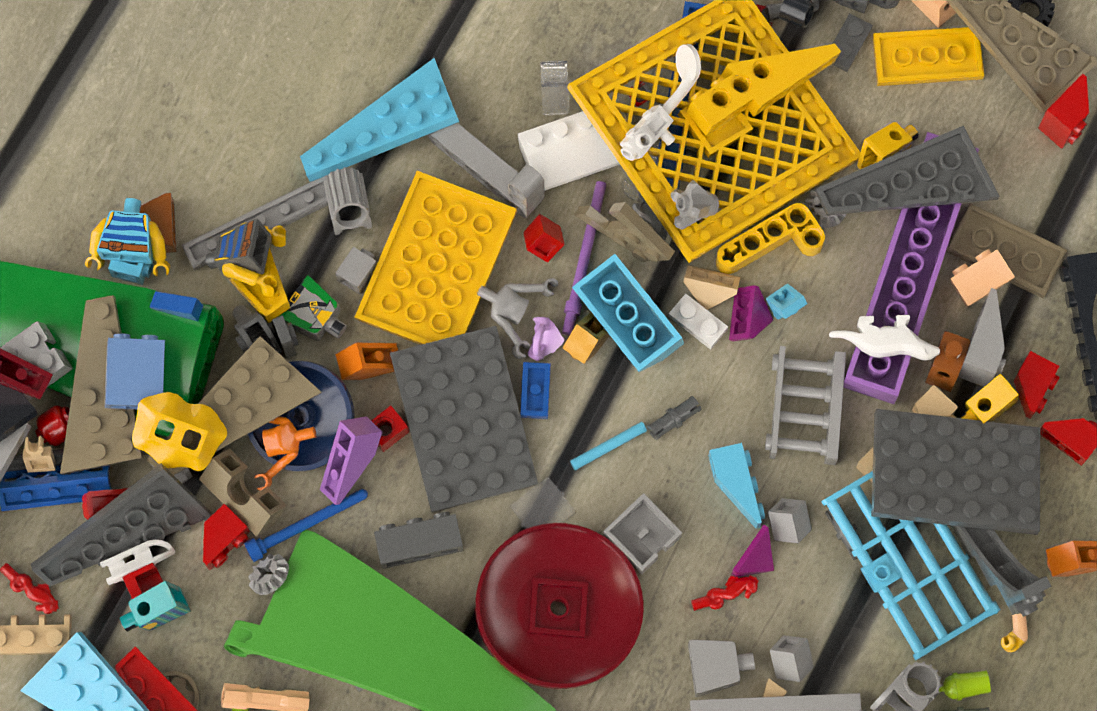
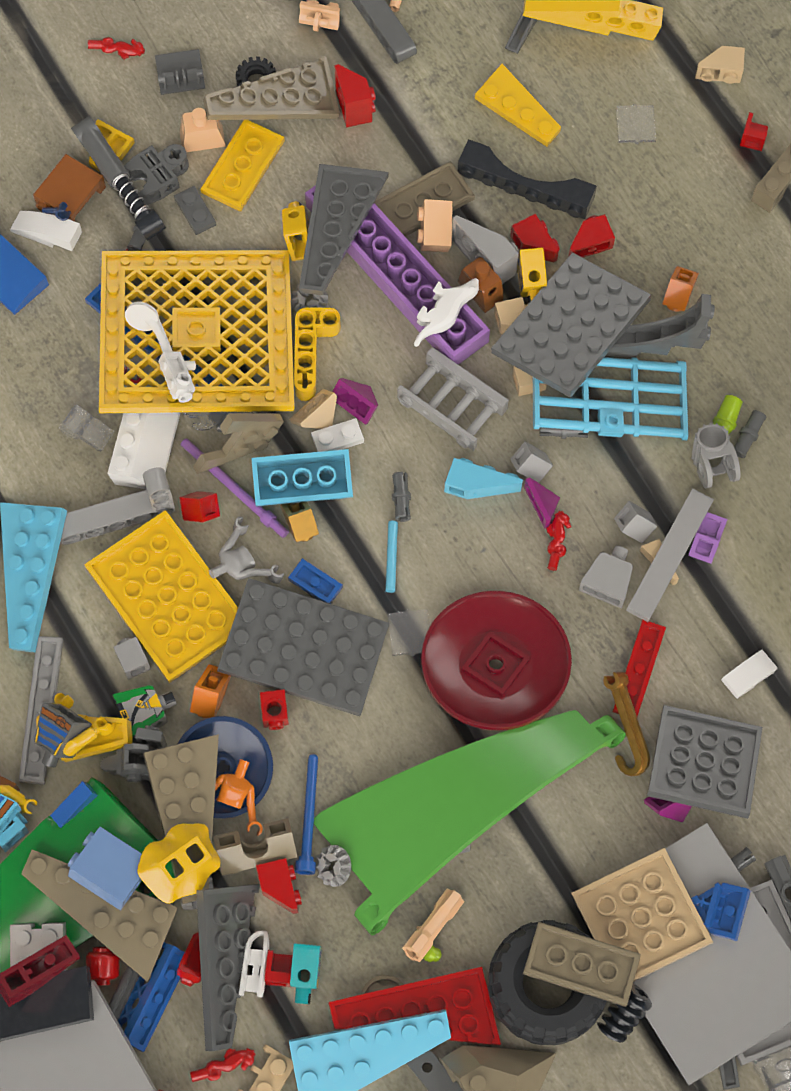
camera: 60 degrees left, 5 degrees down
(37, 457) = (122, 991): tan plate -> none
(344, 189) = (66, 629): light grey piece -> none
(350, 454) = (281, 746): medium lavender slope -> none
(418, 540) = (377, 736): dark grey brick -> none
(546, 338) = (279, 551): lavender piece -> none
(642, 533) = (475, 568): light grey piece -> none
(693, 204) = (254, 376): light grey rock -> none
(781, 76) = (190, 279): yellow brick -> none
(785, 302) = (366, 365): medium azure bracket -> none
(1017, 636) = (711, 362): arm -> none

